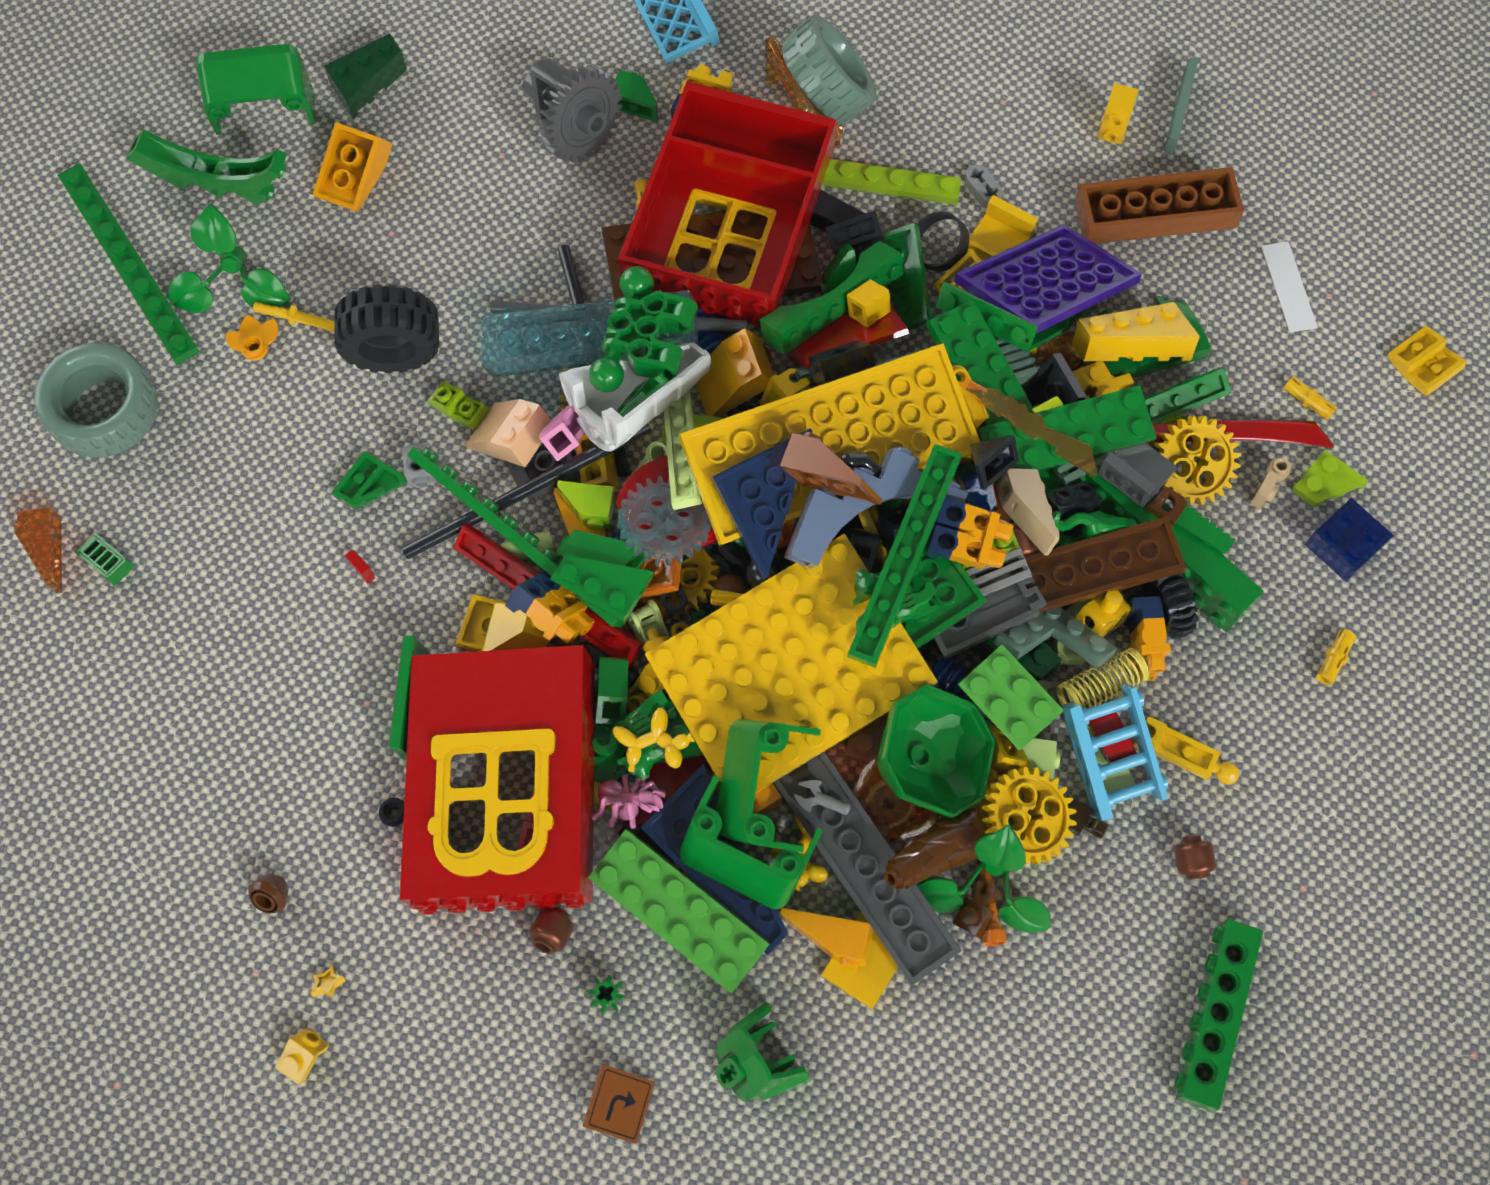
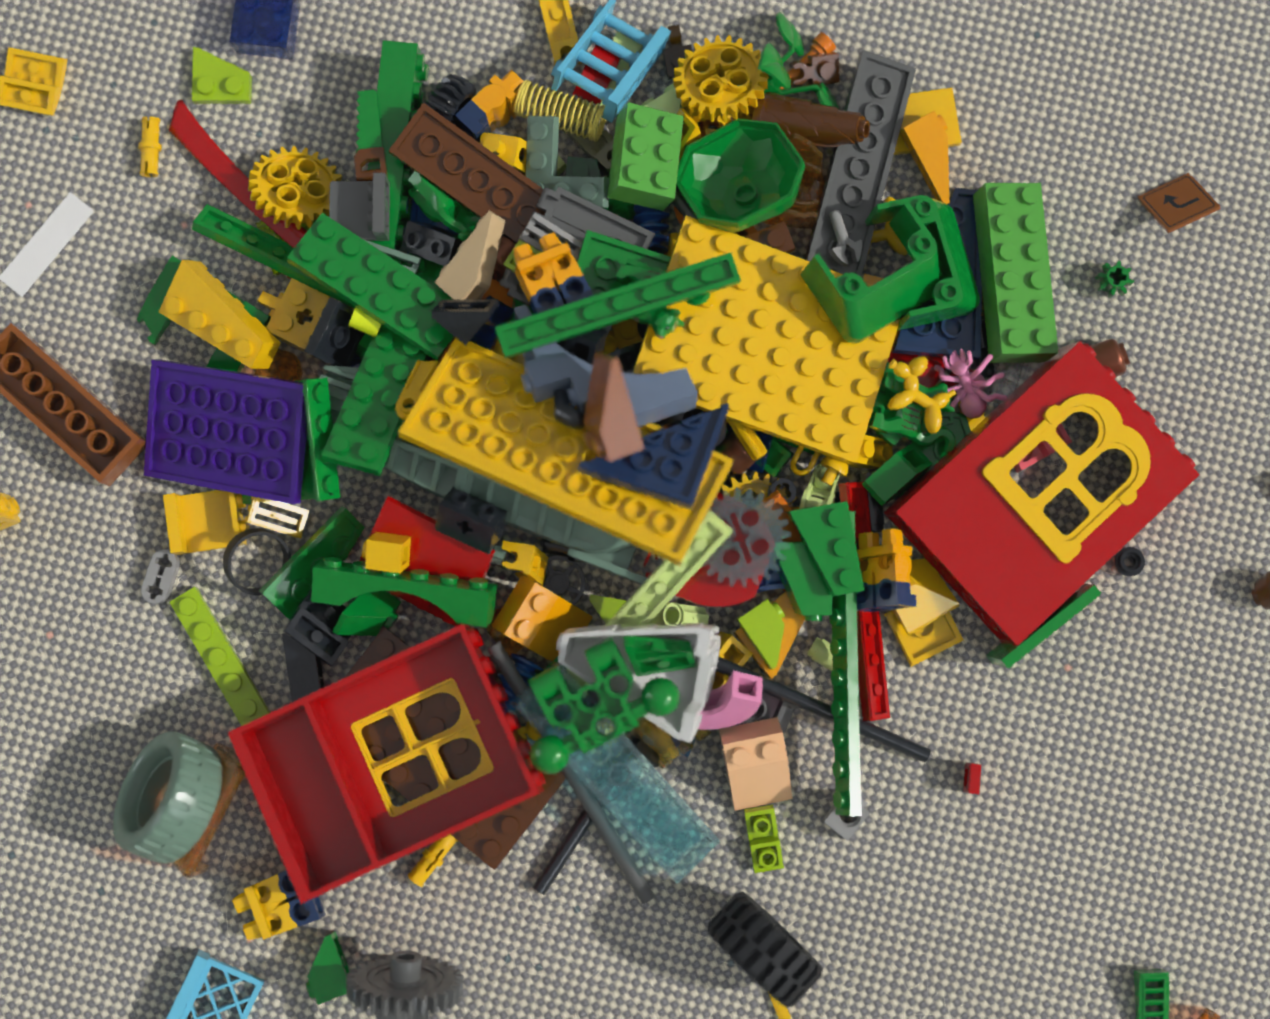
camera: 130 degrees left, 15 degrees up
(367, 481) = (896, 846): green wing -> none
(744, 1067) = (1070, 147): green piece -> none
(1033, 425) = (395, 271): clear orange sword -> none
(1276, 471) = (267, 120): tan plate -> none

